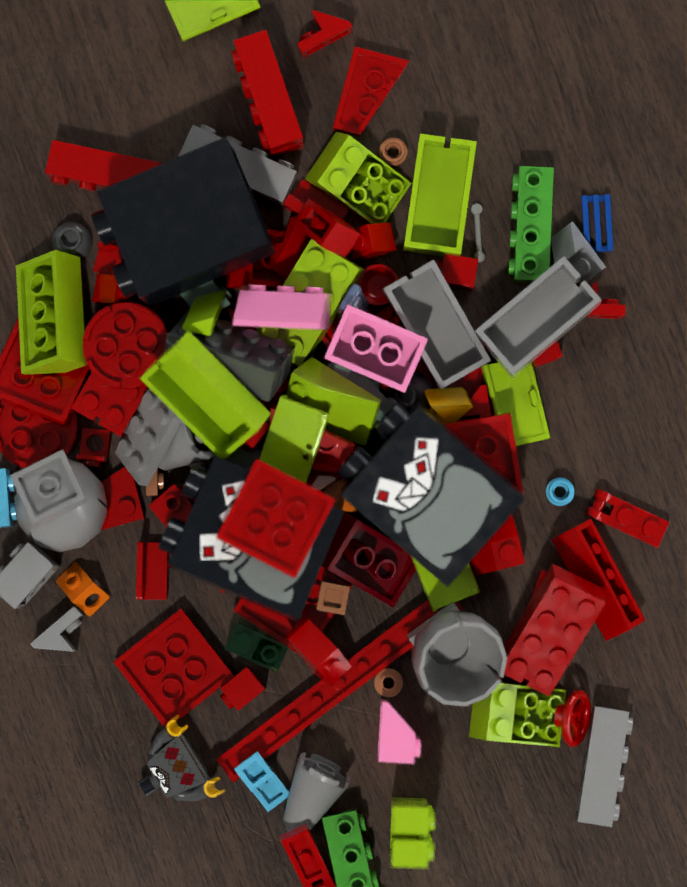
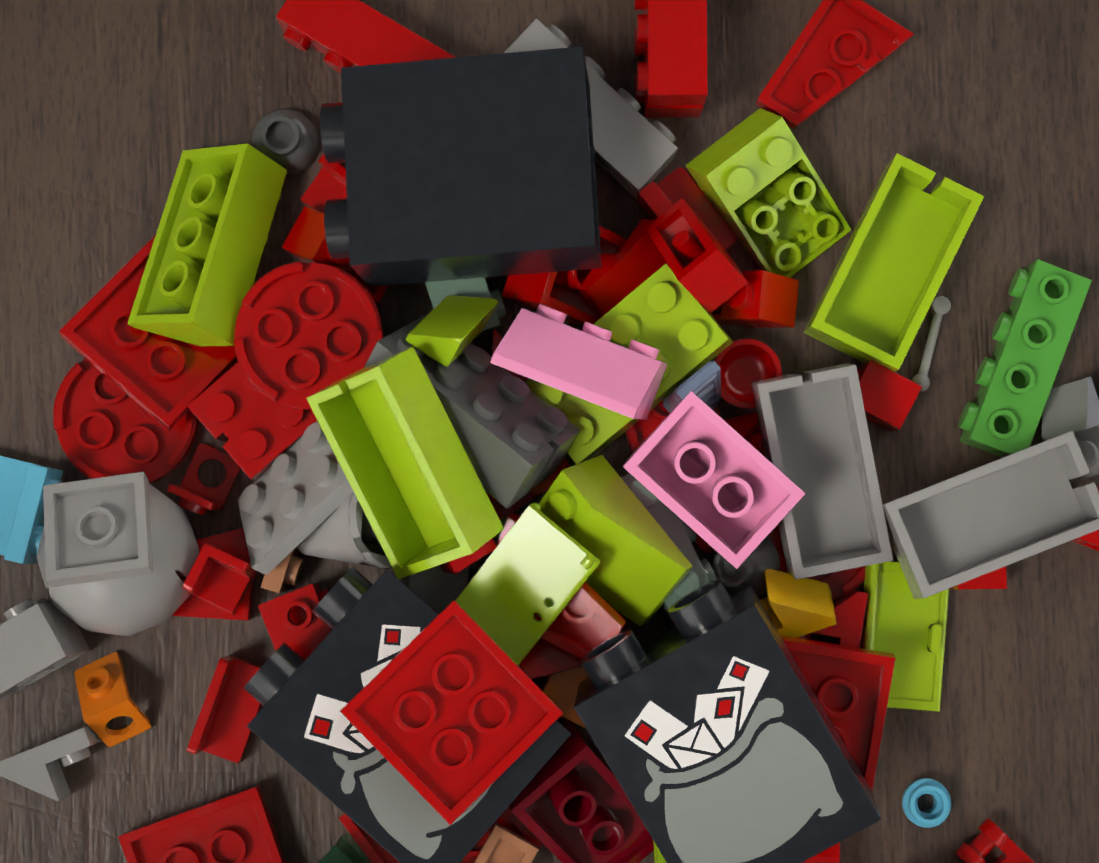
camera: 15 degrees right, 0 degrees up
(122, 498) = (219, 579): none -> red panel
(393, 143) = (846, 158): nougat plate -> none

